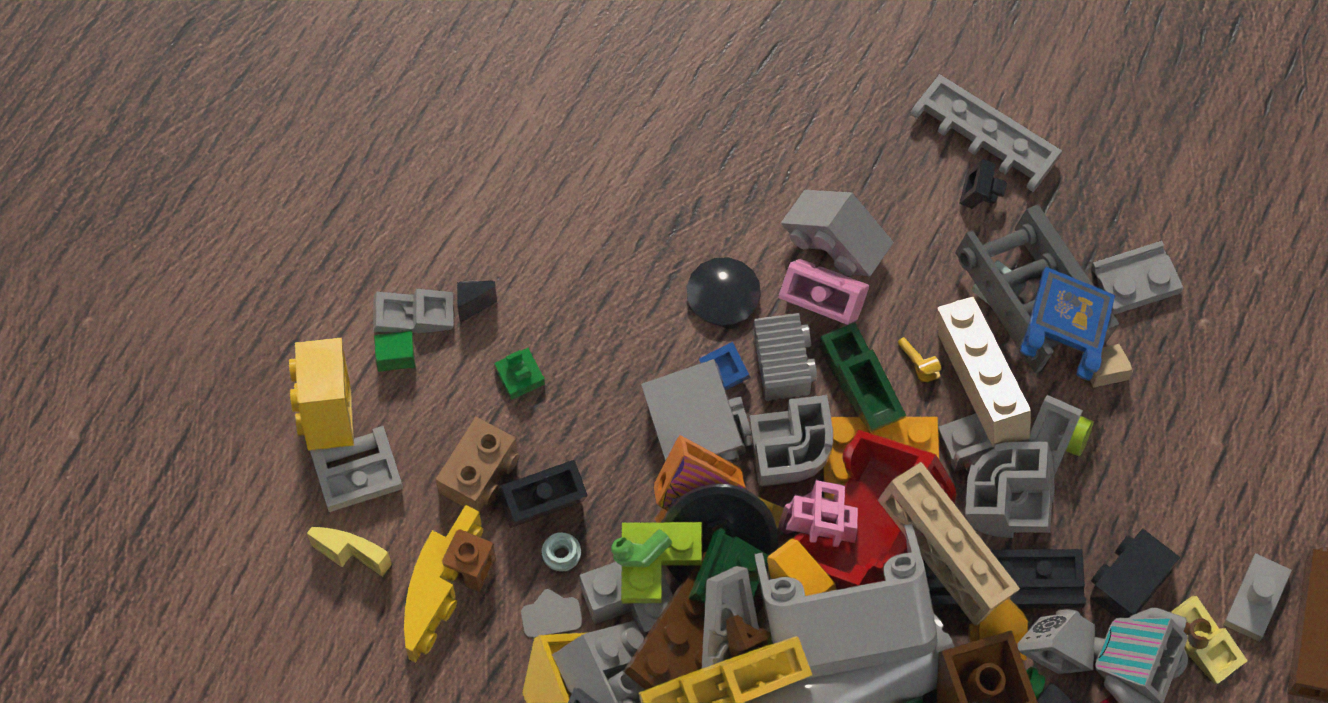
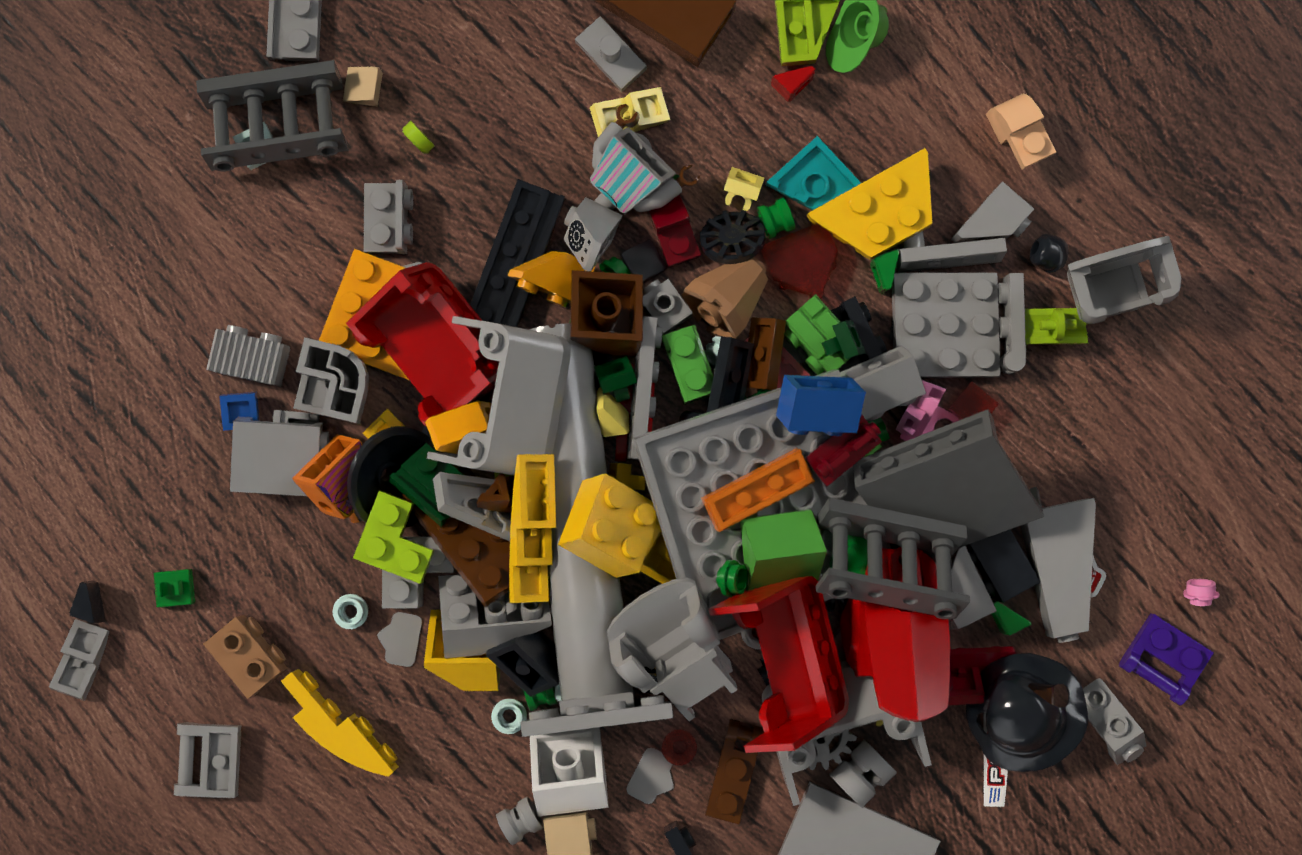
camera: 65 degrees left, 20 degrees up
(322, 394) = (130, 771): yellow brick -> none
(342, 545) = (276, 796): light yellow slope -> none
(394, 351) = (110, 689): green slope -> none
(471, 557) = (329, 693): dark orange bracket -> none
(542, 493) = (295, 611): black brick -> none
(640, 555) = (389, 556): bright green arm -> none
(723, 292) = (167, 383): black dish -> none
(806, 513) = (402, 381): bright pink piece -> none
(823, 291) = (203, 299): bright pink brick -> none
(840, 227) = (150, 262): light grey brick -> none
(861, 377) = (295, 298): dark green slope -> none
(925, 369) = (307, 239): yellow hand -> none
(948, 542) = (480, 291): tan fence -> none
(981, 185) = (156, 120): black tile -> none
(984, 372) = (333, 194): brick -> none
(988, 130) = (105, 92): light grey hinge -> none
(1011, 489) = (445, 215): light grey brick -> none
(1056, 426) = (412, 163): light grey tile -> none
(1071, 315) = (312, 98): blue flag -> none
(1134, 575) = (557, 146): black brick -> none

